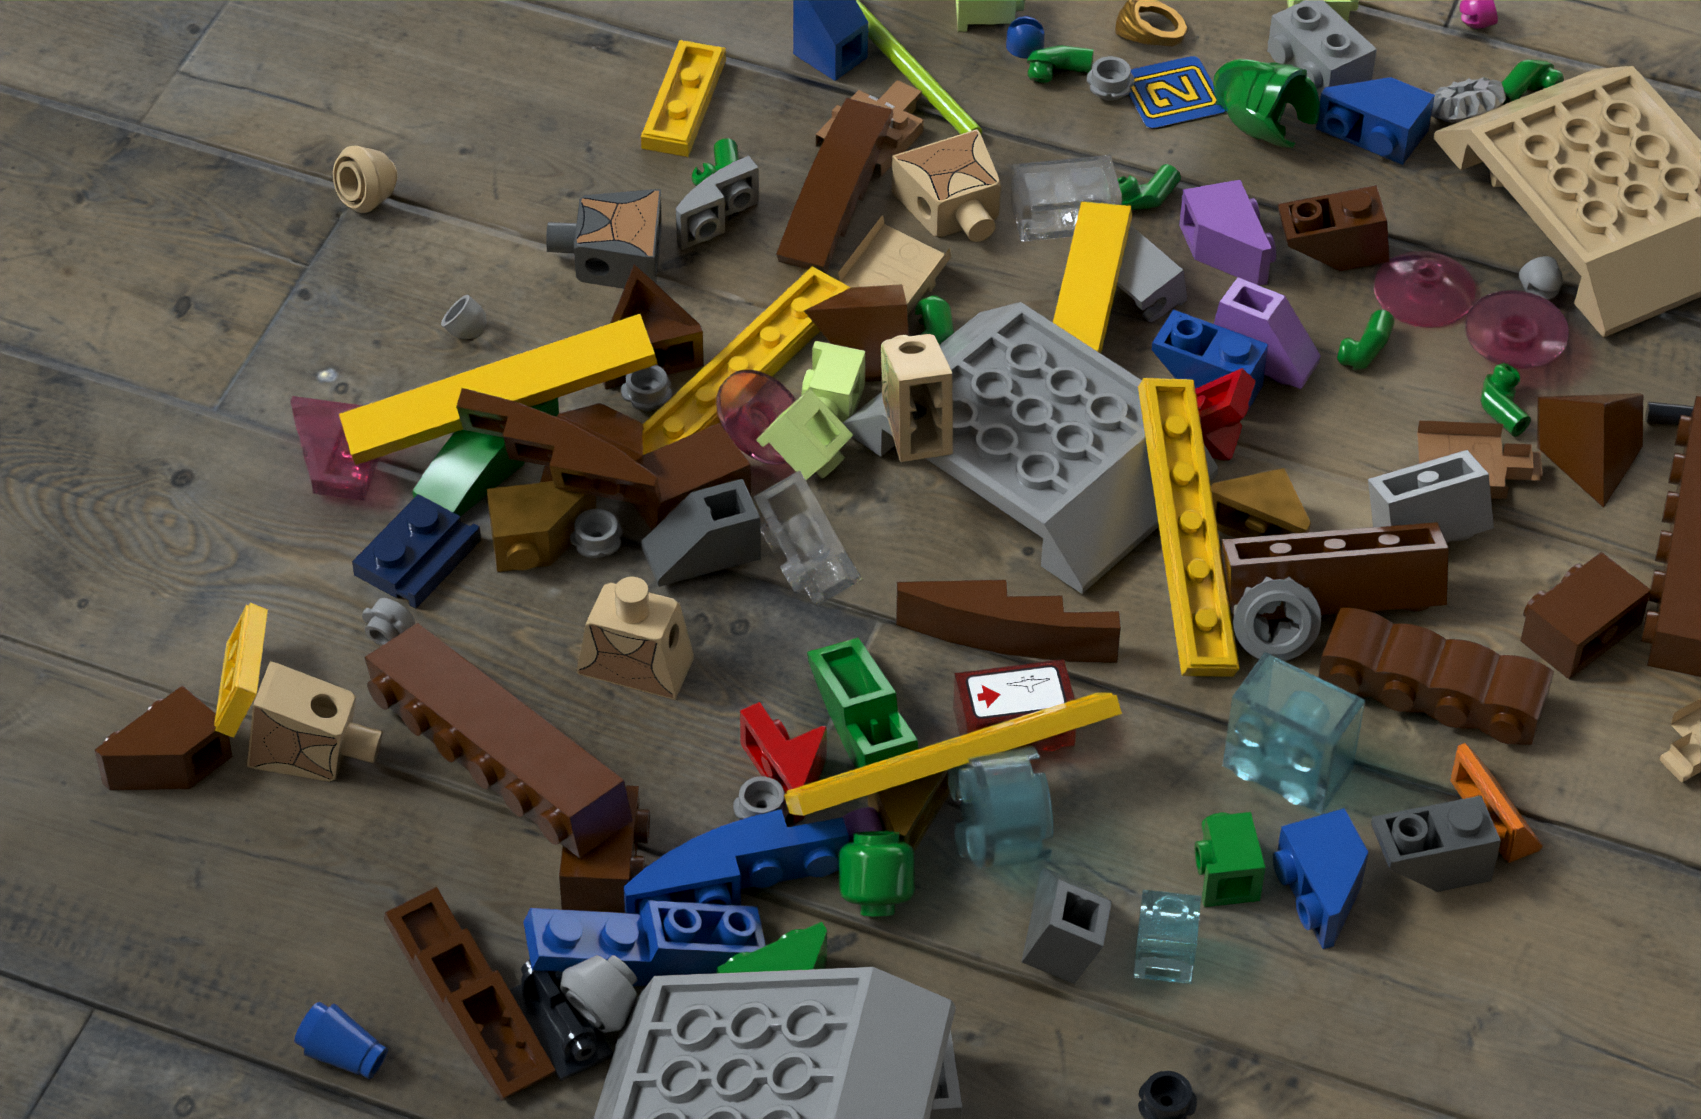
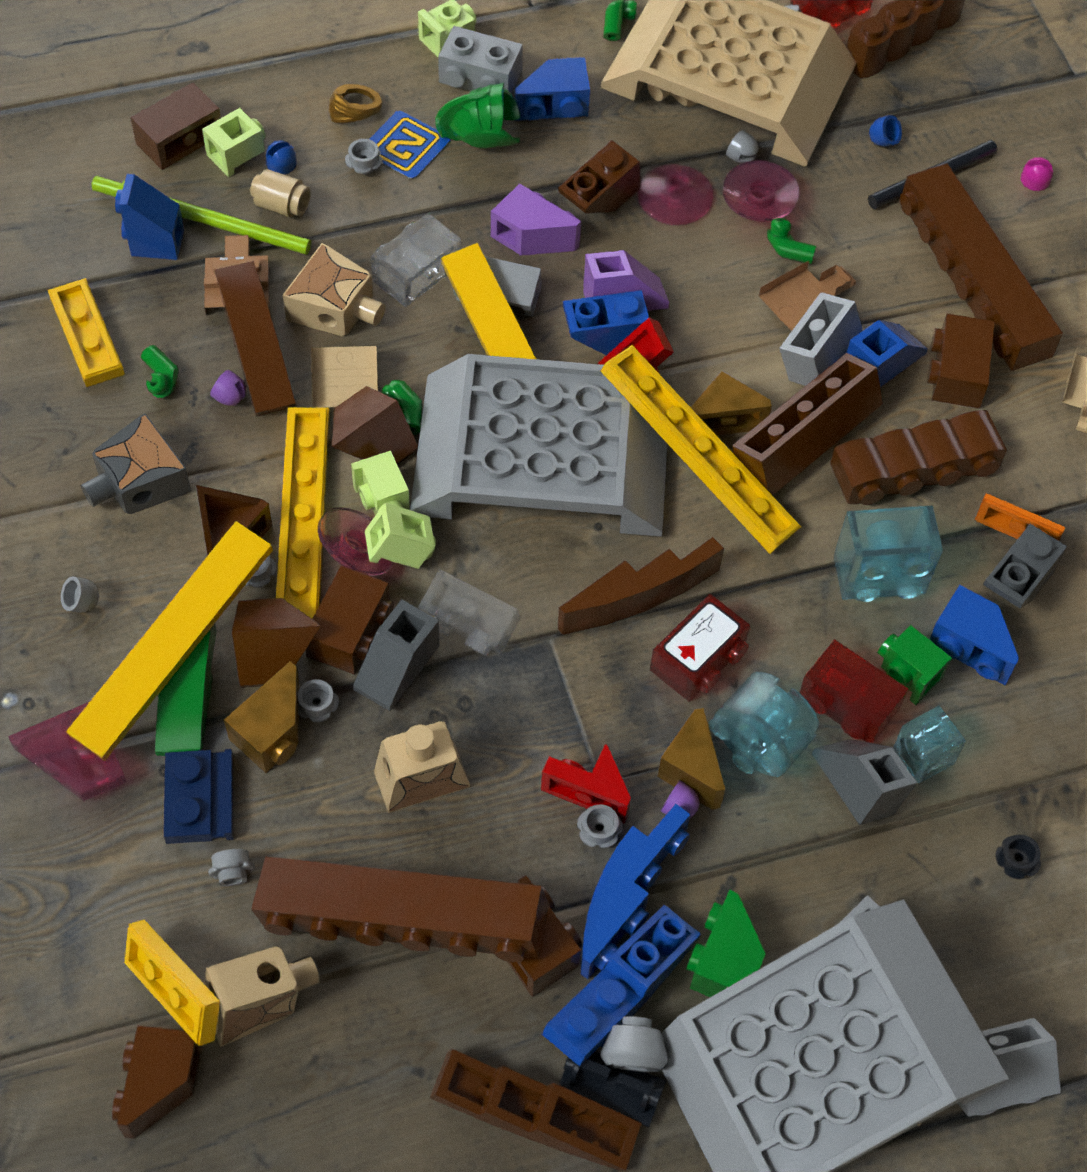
camera: 40 degrees left, 10 degrees up
(574, 456) = (279, 656): reddish brown slope -> none
(725, 192) = (182, 403): light grey slope -> none
(769, 217) = (229, 389): none -> medium lavender hinge
(860, 703) = (608, 713): green slope -> none
(876, 872) = (723, 826): green head -> none
(911, 375) = (477, 464): tan torso -> none
(951, 753) = (713, 715): yellow tile -> none
(988, 68) = (280, 193): none -> tan brick
(1058, 57) = (317, 159): green arm -> none
(1132, 842) = (852, 692): none -> clear red brick
(1152, 193) = (460, 217): green arm -> none
(1288, 638) = (811, 486): light grey gear -> none
(1372, 341) = (683, 247): green arm -> none
(1467, 99) = (599, 48): light grey gear -> none
(1496, 553) = (887, 348): none -> blue slope
(1592, 438) = (860, 239): reddish brown slope -> none

